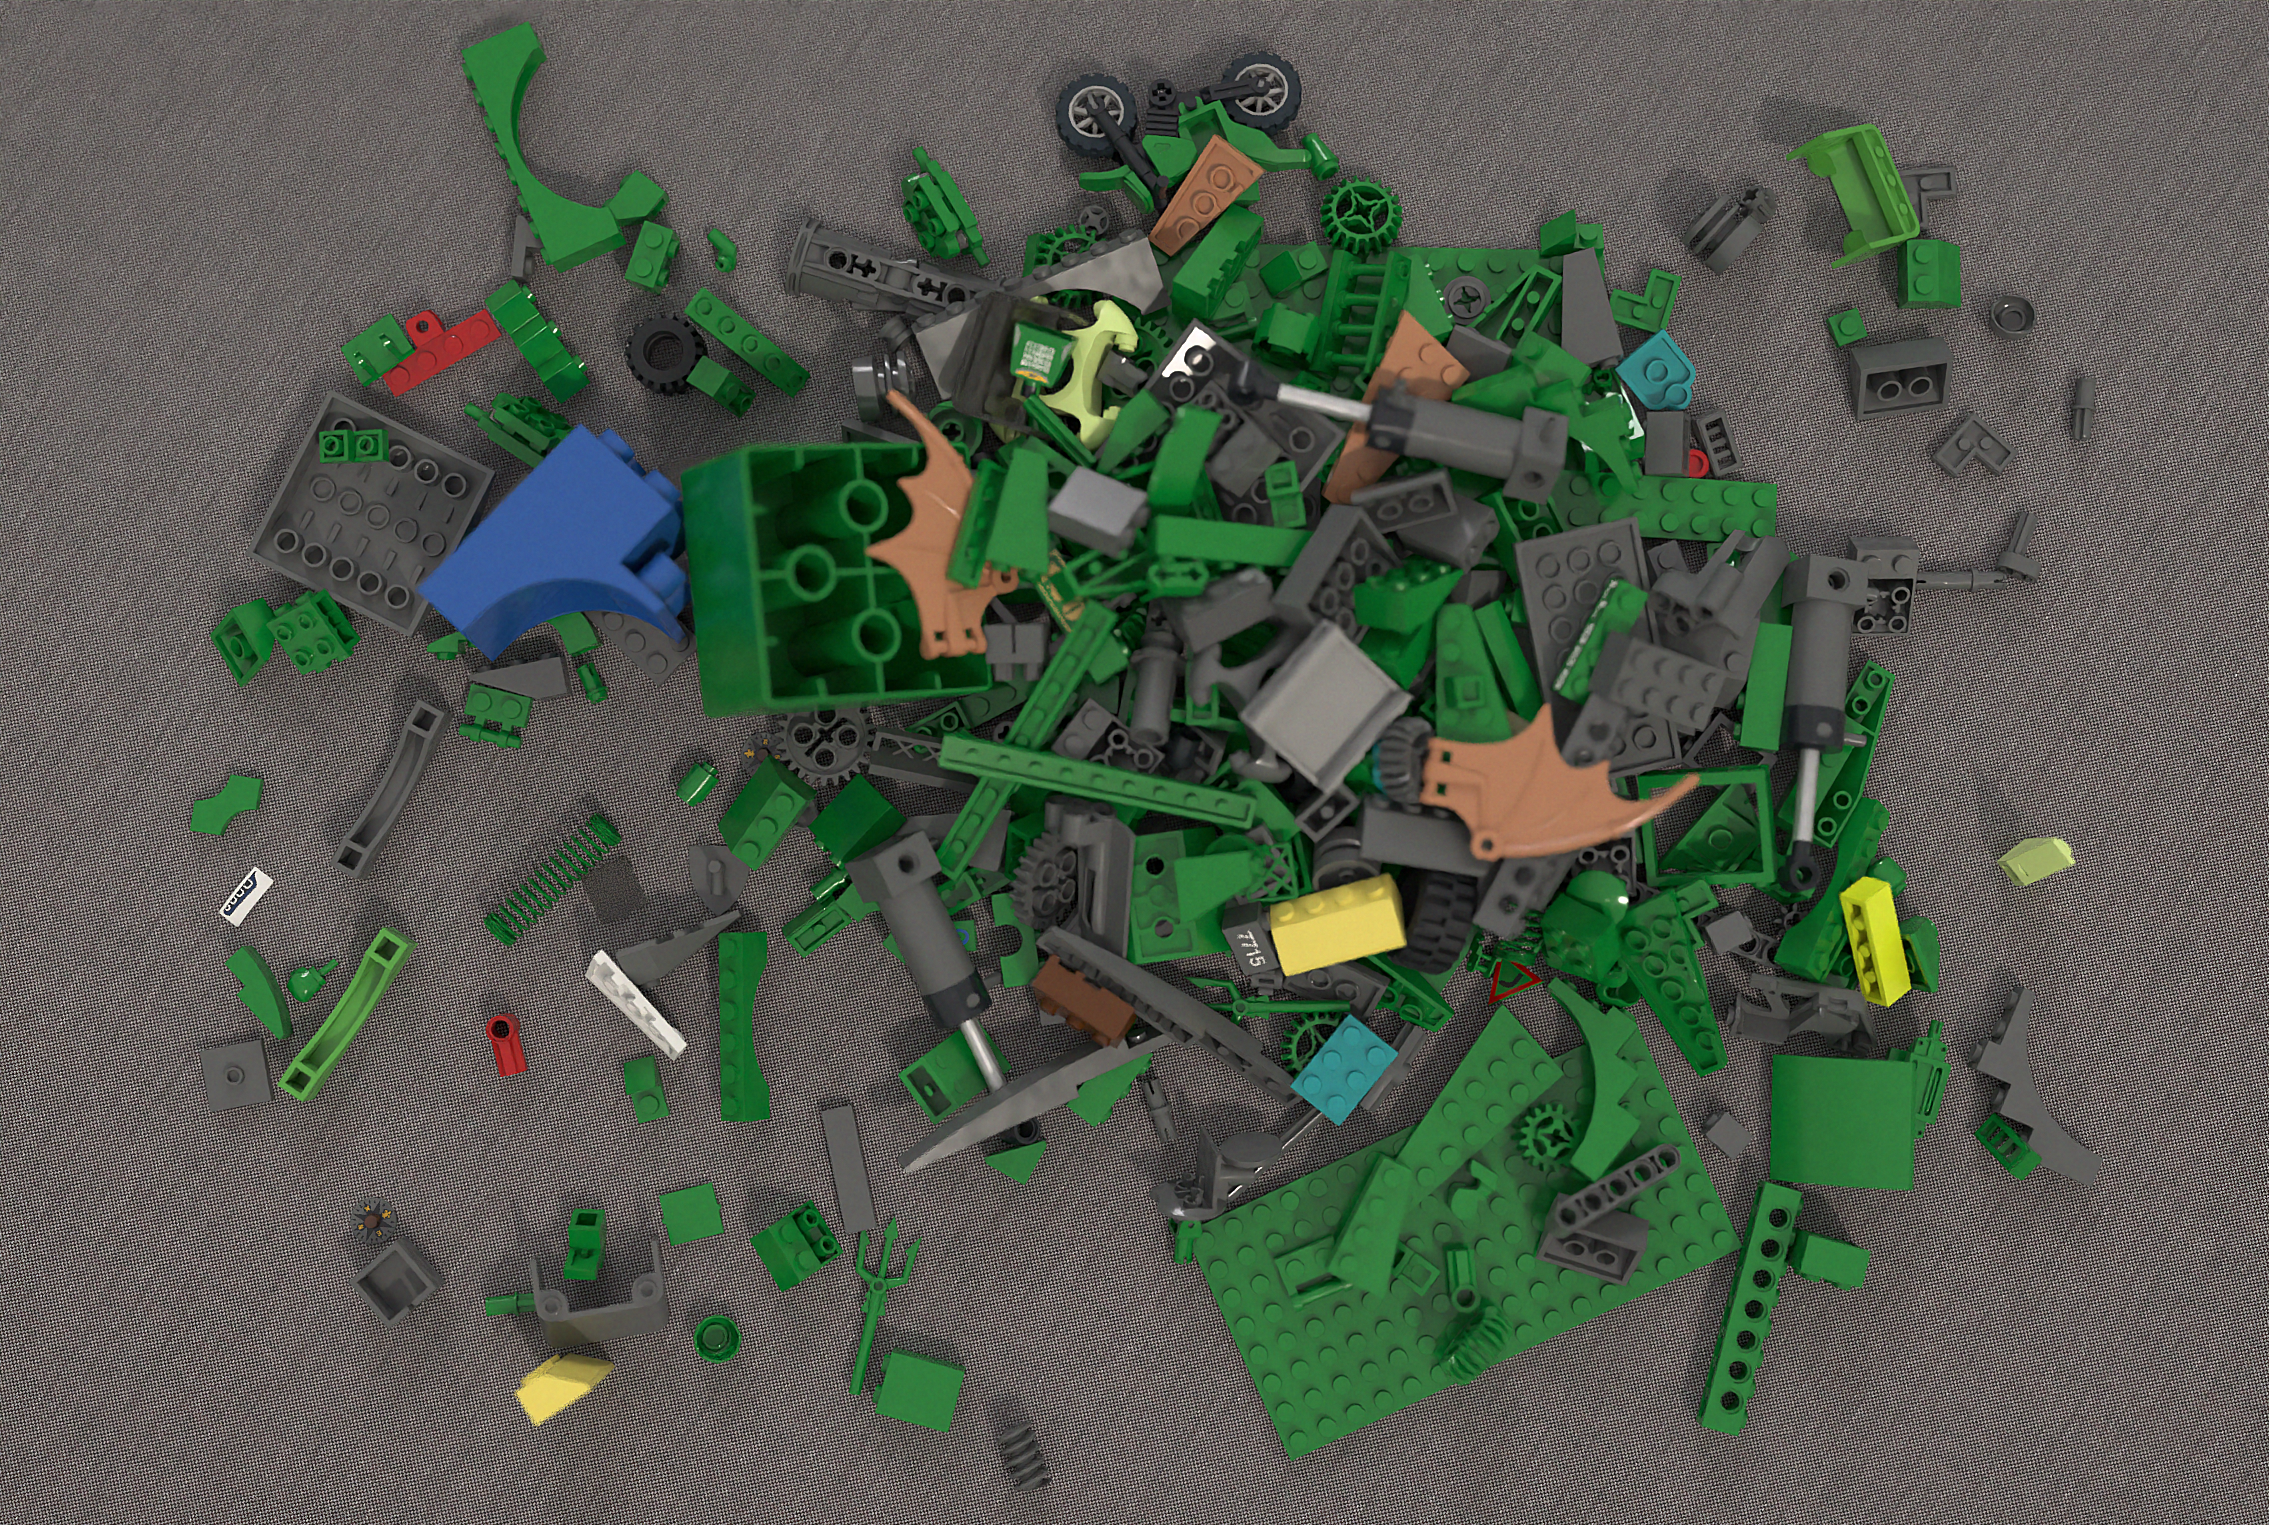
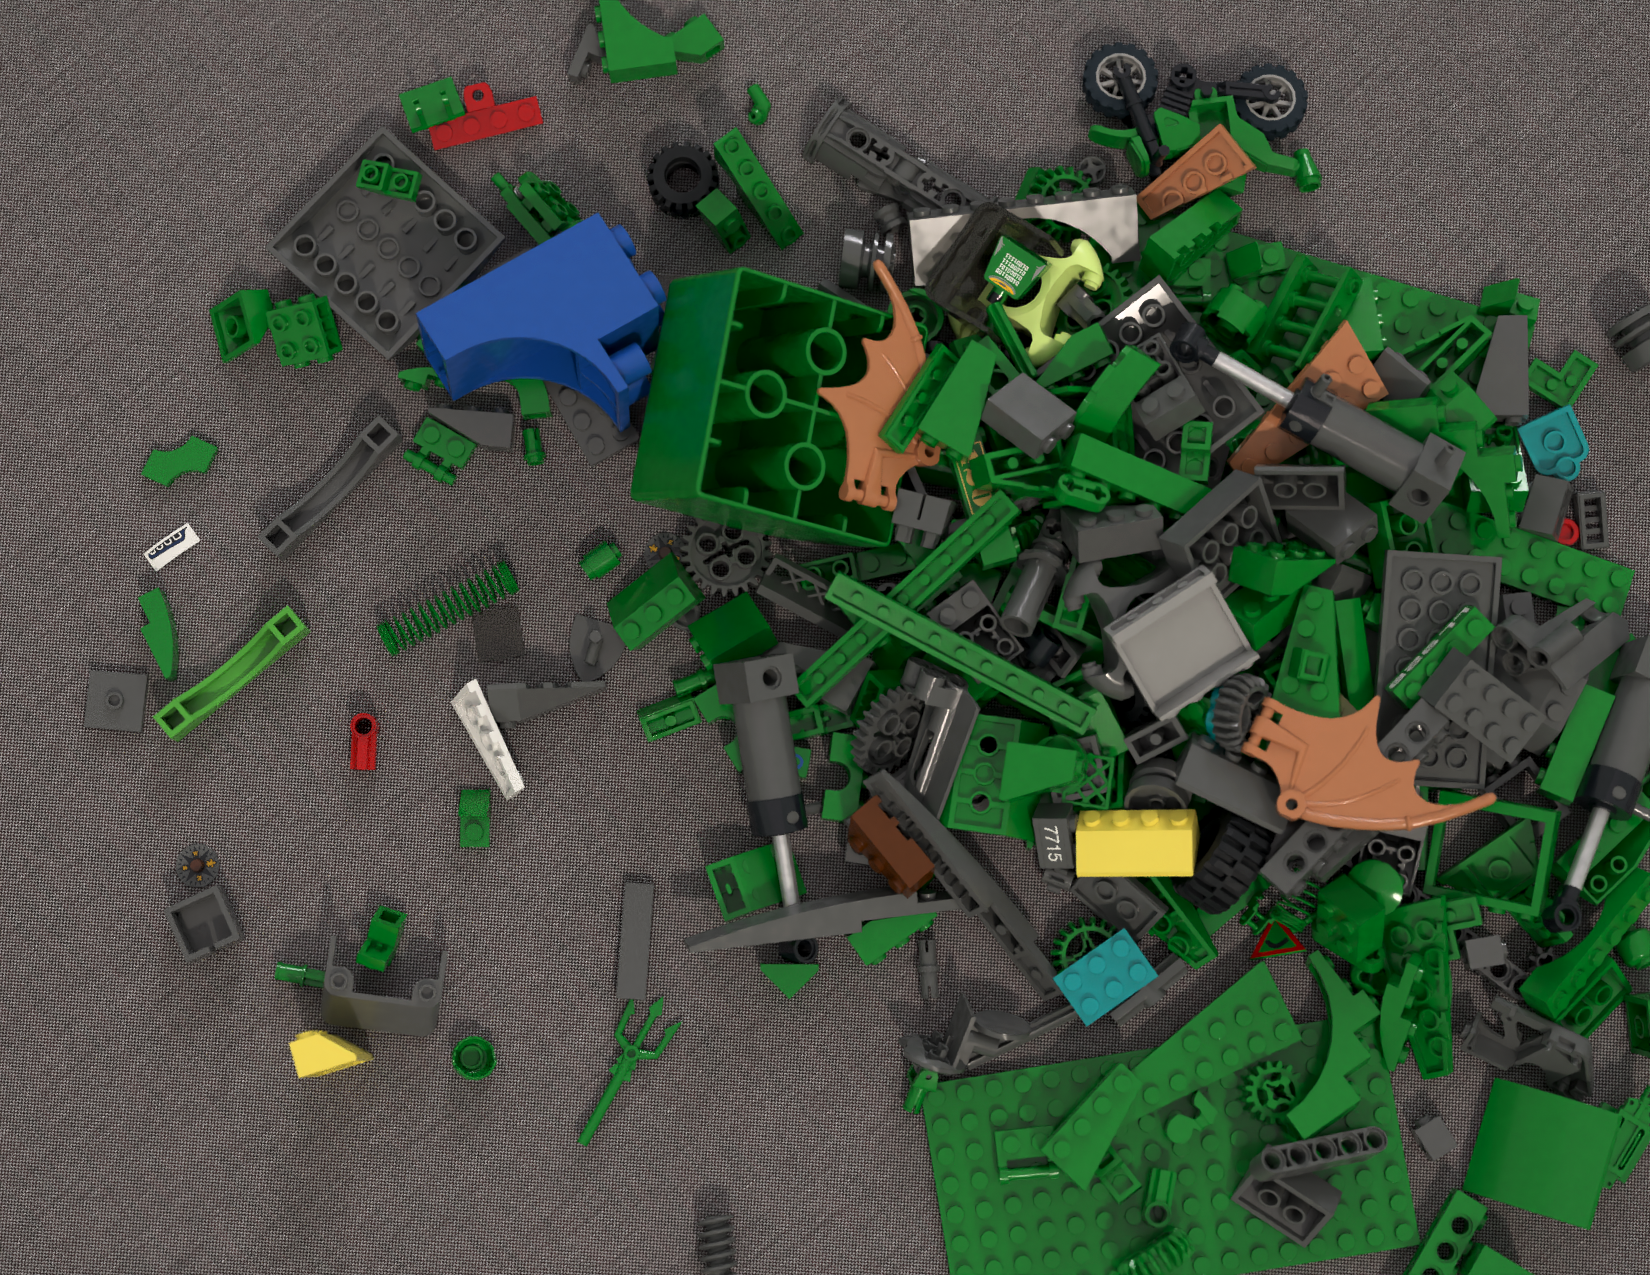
camera: 10 degrees right, 5 degrees down
(307, 982) = (202, 636): green piece -> none
(538, 340) = (574, 136): green brick -> none
(652, 258) = (695, 93): green brick -> none
(691, 1213) = (482, 941): green piece -> none
(740, 969) = (563, 836): green arch -> none
(796, 1246) = (568, 995): green slope -> none
(919, 1389) = (641, 1156): green brick -> none
(940, 212) = (959, 125): green piece -> none
(1262, 1005) = (1048, 902): green piece -> none
(1379, 203) = (1338, 222): green gear -> none
(1473, 289) = (1410, 323): dark grey gear -> none
(1655, 1019) = (1396, 1014): none -> green slope
(1875, 941) = (1615, 999): neon yellow brick -> none

